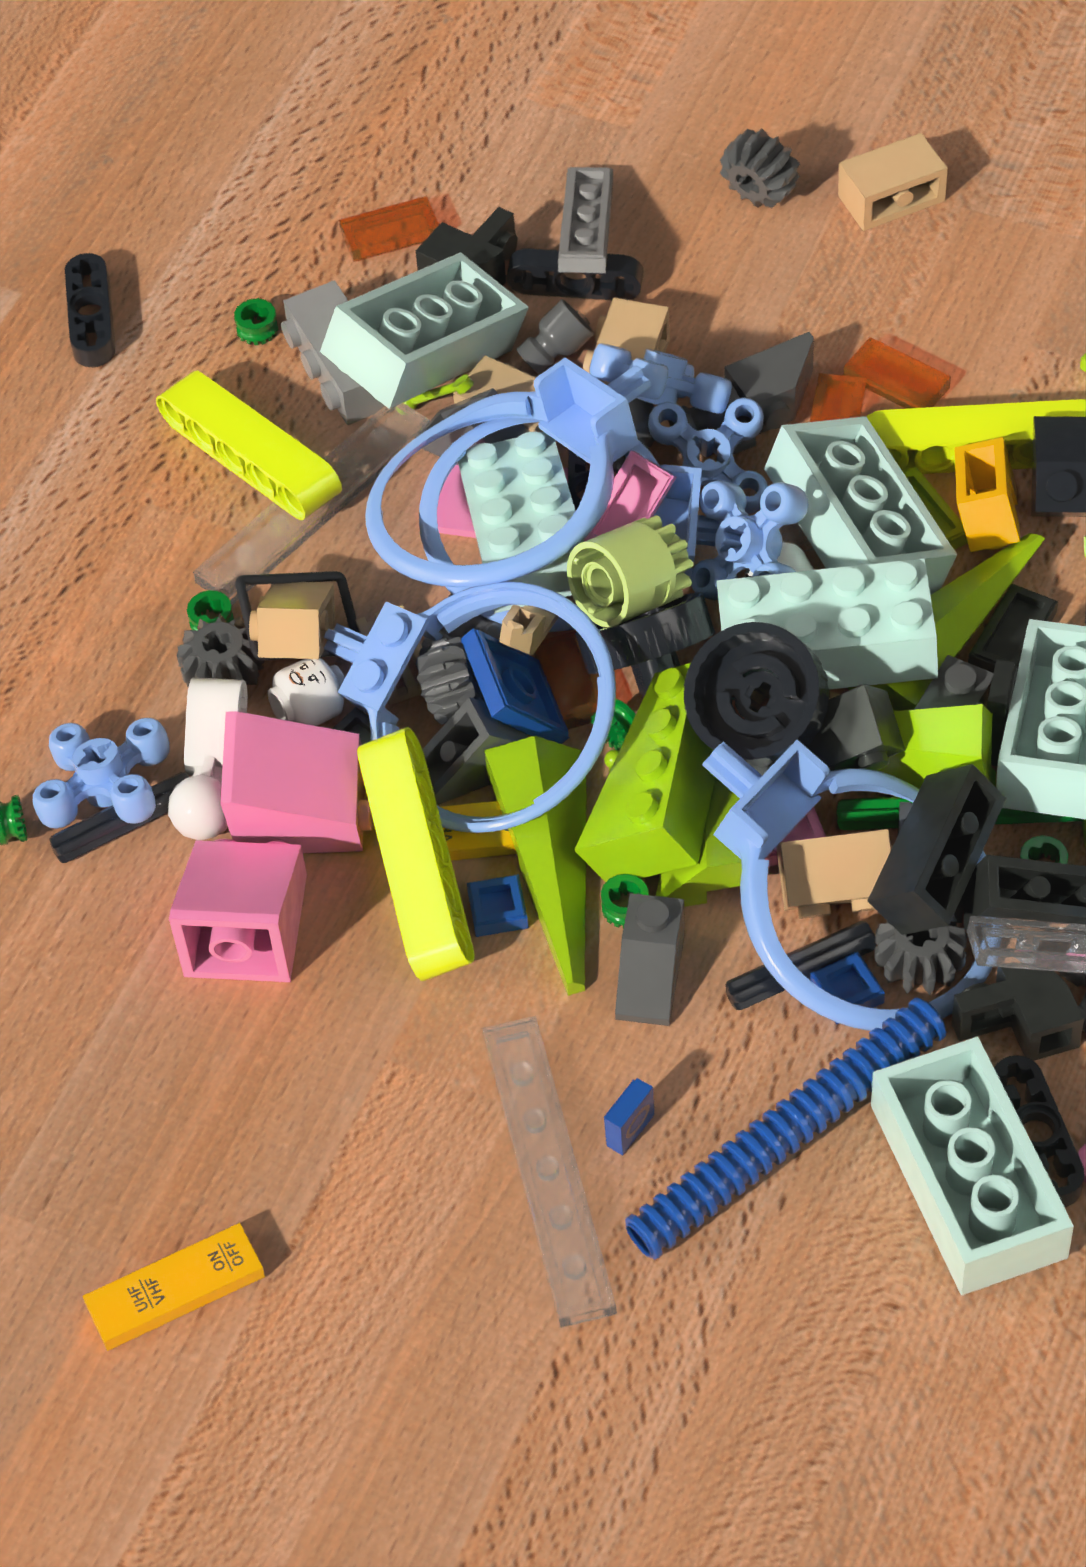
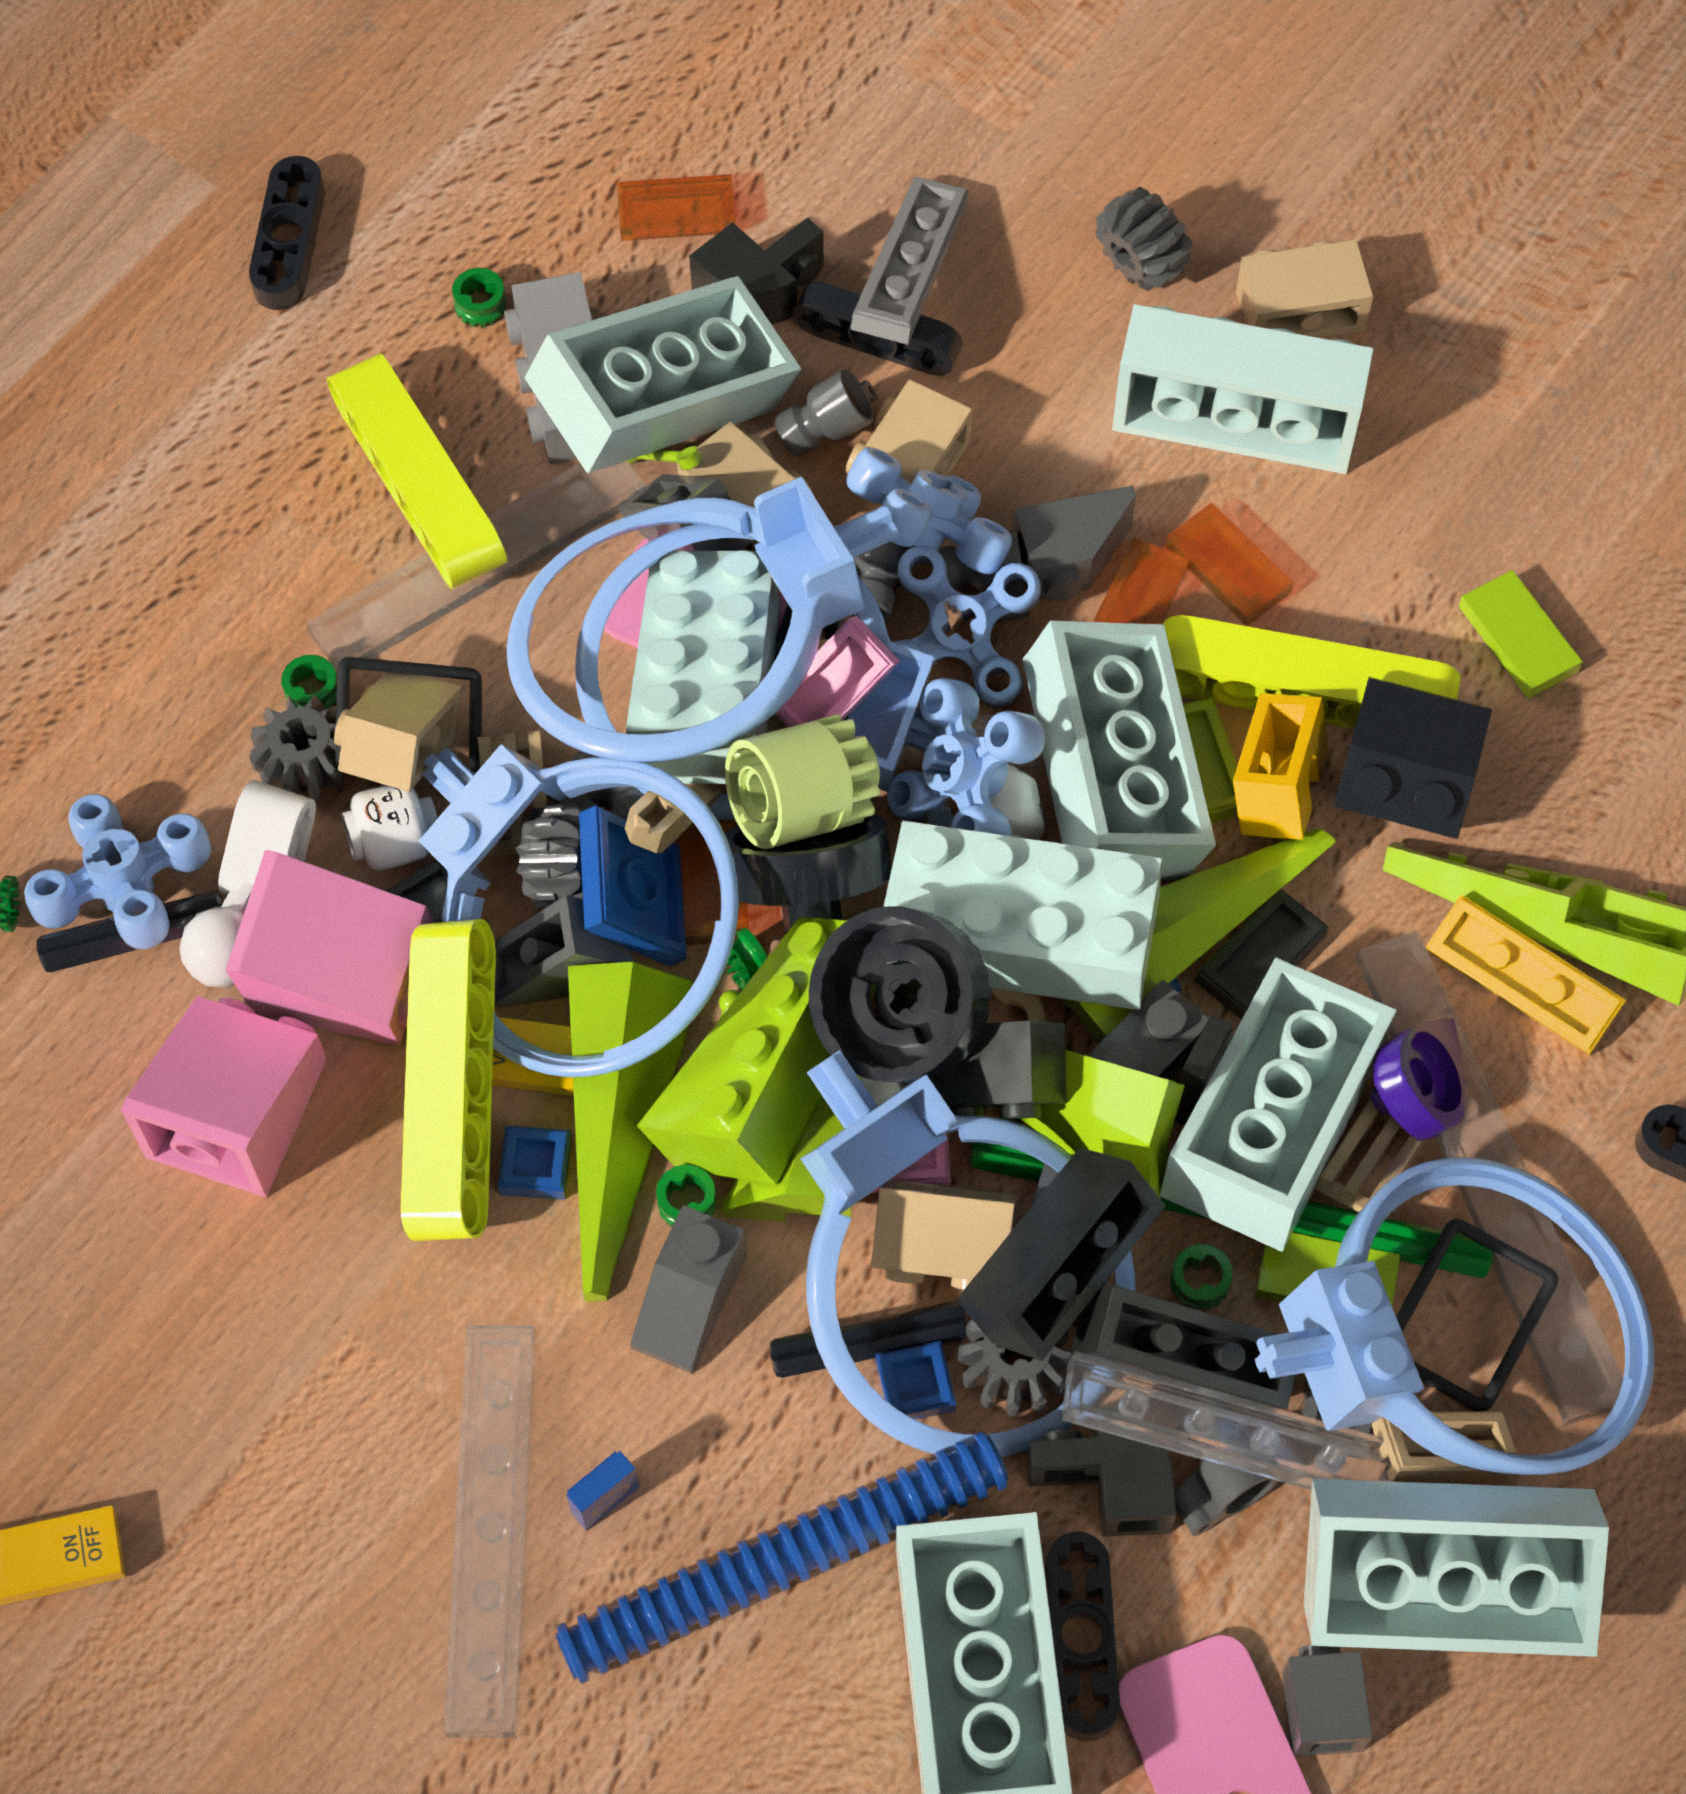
camera: 10 degrees right, 10 degrees up
(869, 249) = (1241, 388): none -> light aqua brick

